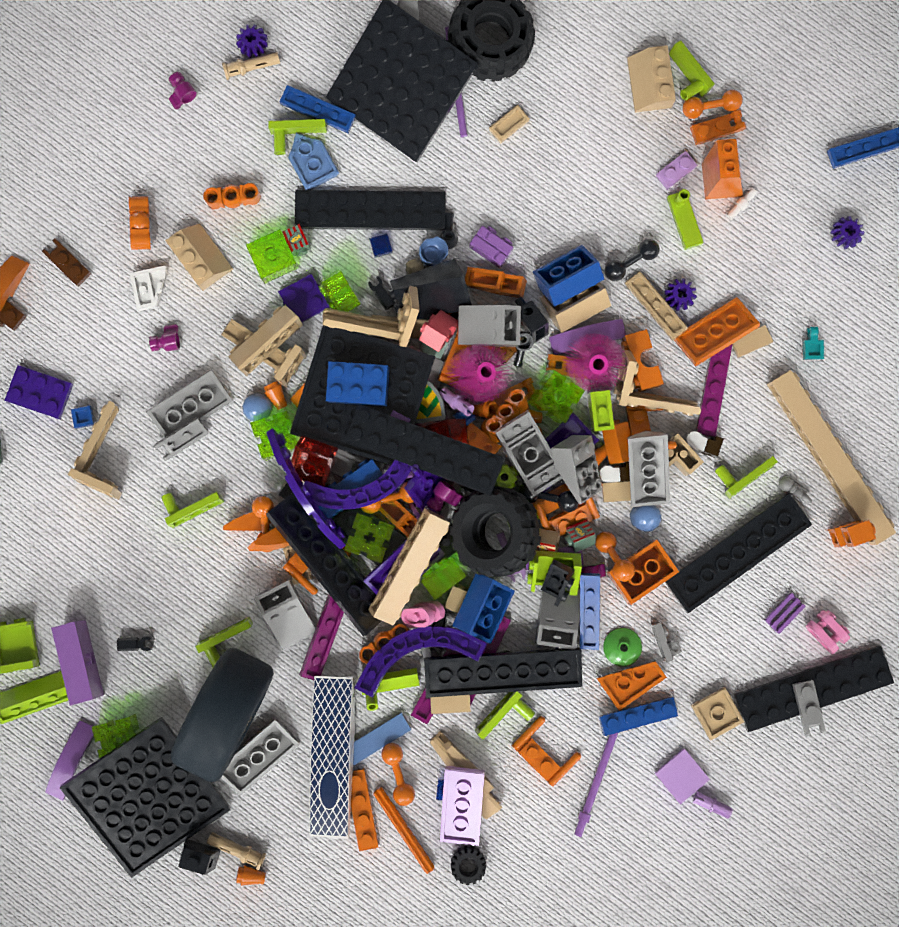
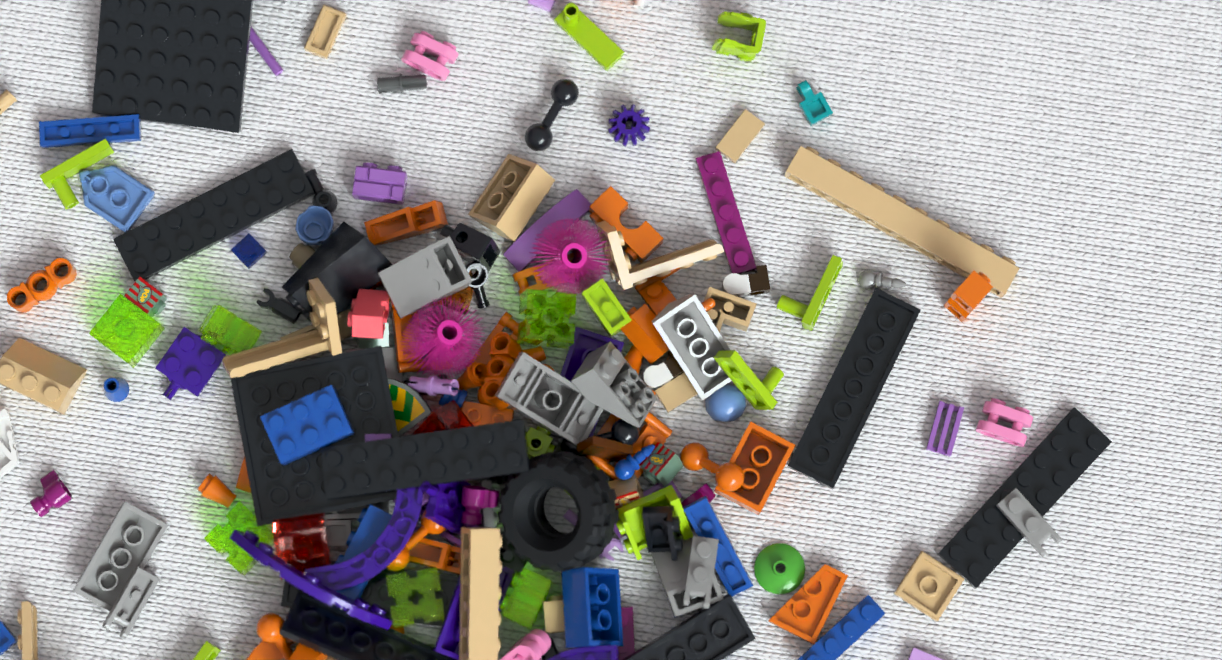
camera: 25 degrees left, 5 degrees down
(246, 295) = (120, 392): none -> cone
(257, 407) = (201, 517): medium blue hair -> none
(265, 340) = (171, 432): tan slope -> none
(284, 363) = (206, 449): tan bracket -> none
(542, 186) = (401, 83): none -> dark grey axle
(549, 505) = (604, 448): none -> reddish brown tile
(556, 526) = (625, 469): none -> blue bar
(568, 275) = (487, 171): blue brick -> none
(570, 622) = (701, 569): none -> light grey hinge
(581, 178) = (425, 43): none -> bright pink brick
(656, 306) = (607, 153): tan tile -> none
(667, 649) = (832, 542): light grey hinge -> none
(668, 510) = (754, 390): none -> lime piece
(717, 331) = (692, 146): orange plate -> none
(780, 278) = (742, 21): none -> lime piece

